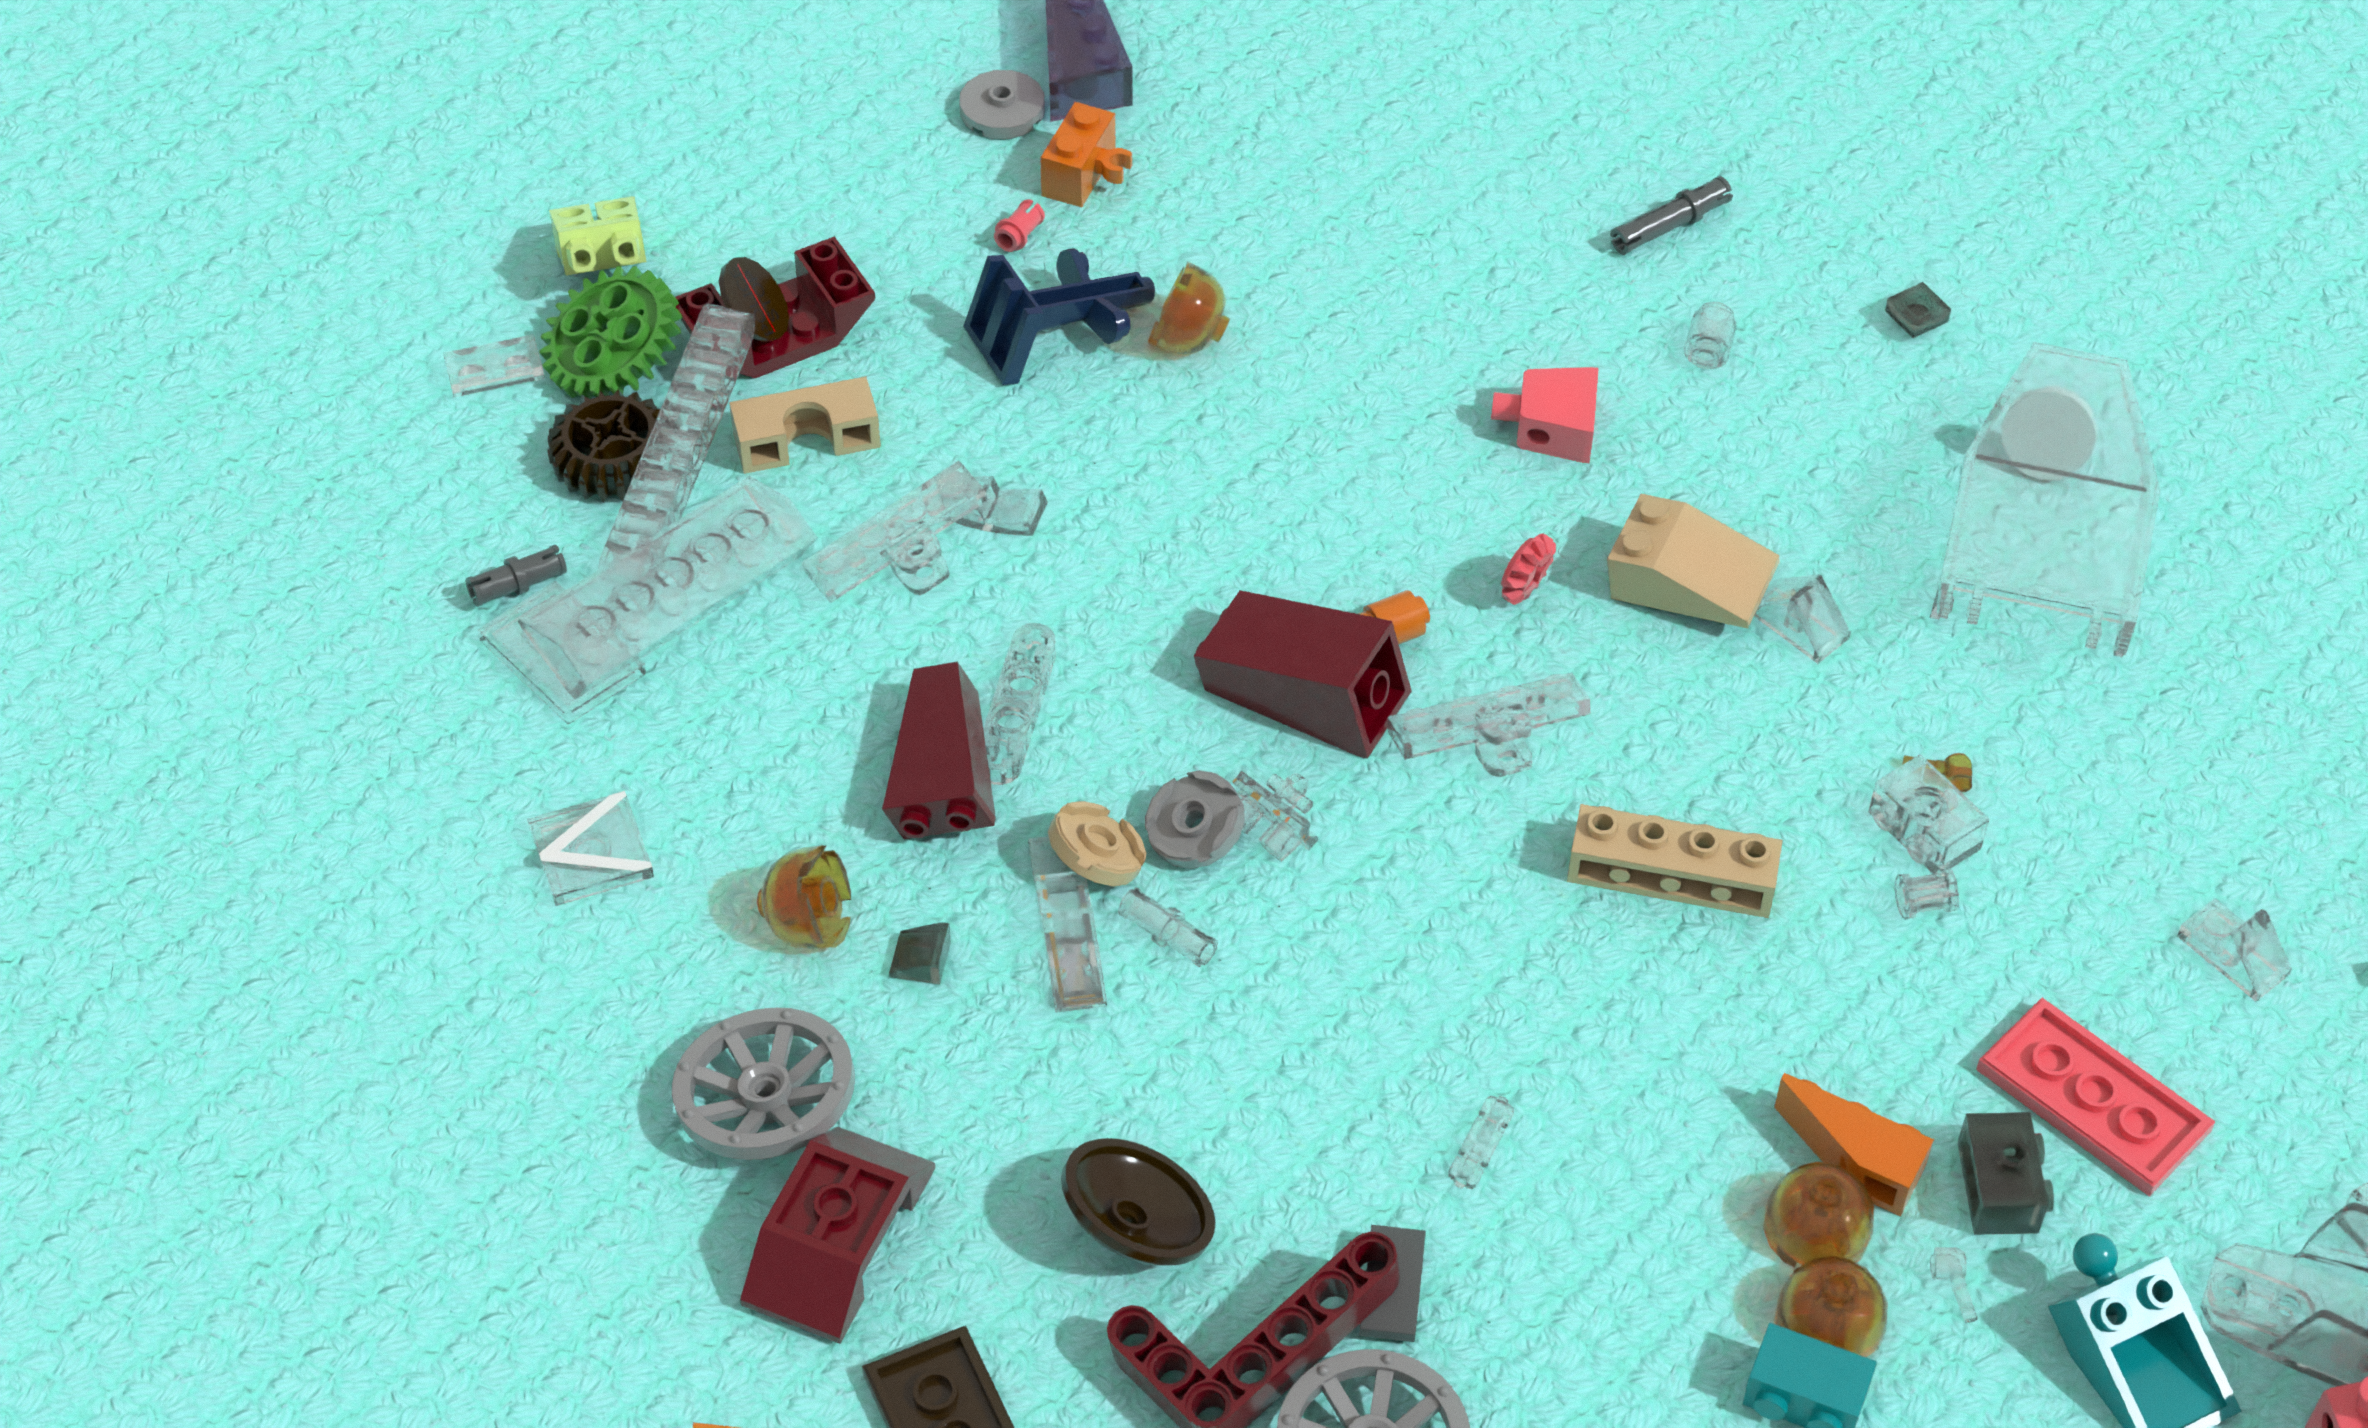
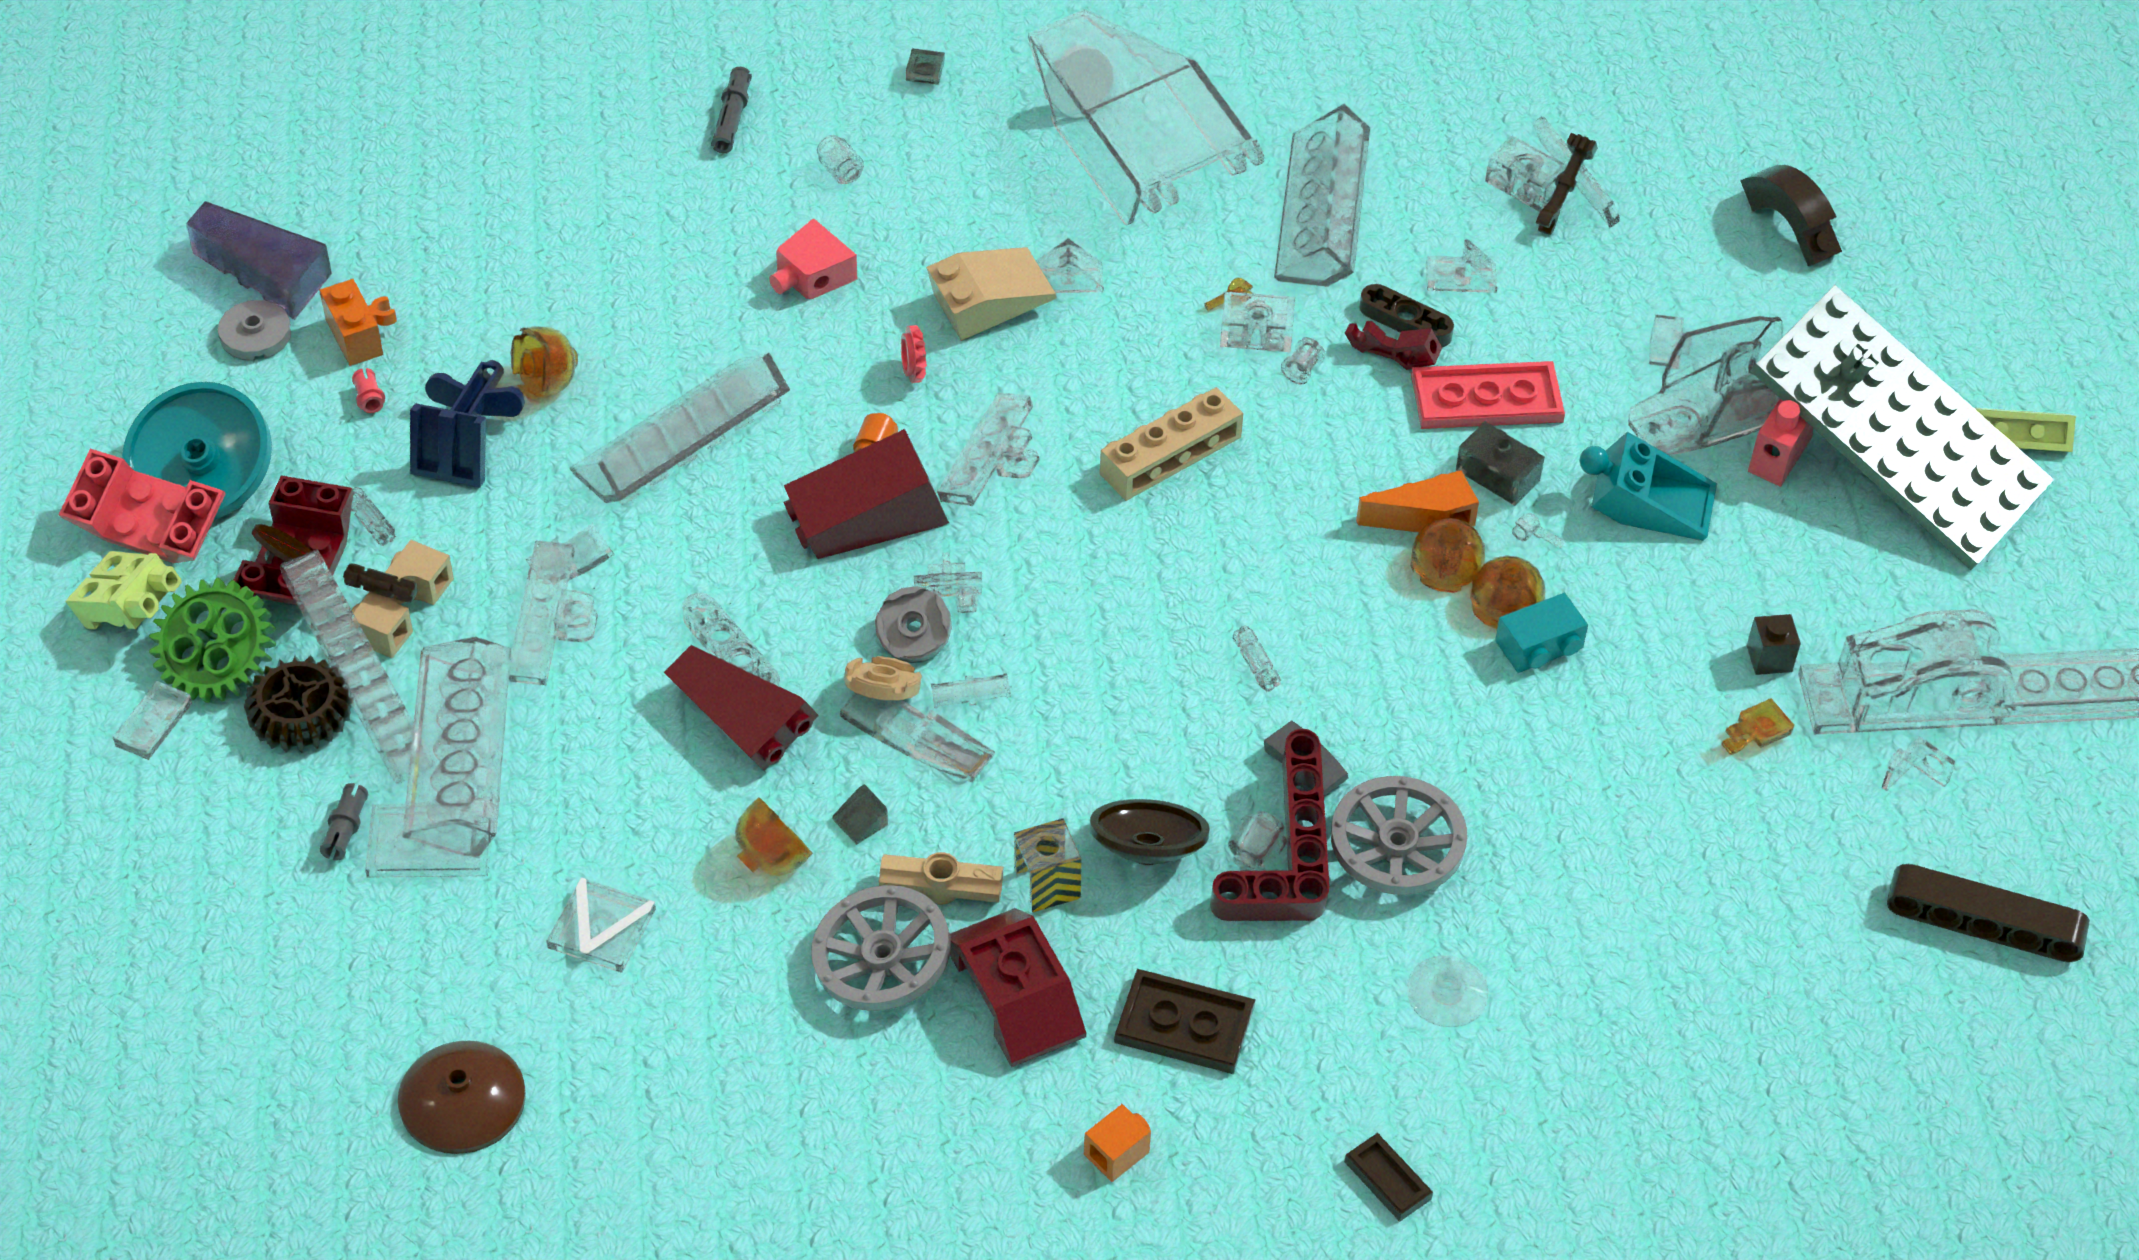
camera: 50 degrees left, 0 degrees up
(306, 908) = (464, 1114): none -> reddish brown dish
(699, 173) = (140, 509): none -> coral slope
(786, 391) = (380, 583): none -> dark brown axle
(806, 168) = (202, 436): none -> teal dish
(880, 335) = (372, 518): none -> clear axle
(918, 1093) = (960, 881): none -> tan piece
(987, 1158) = (1052, 862): none -> piece
(1229, 1312) = (1257, 841): none -> clear head
(1231, 470) = (682, 428): none -> clear slope
(2061, 976) = (1411, 349): none -> dark red piece
(2106, 961) = (1377, 303): none -> dark brown beam
(2172, 752) = (1323, 200): none -> clear slope

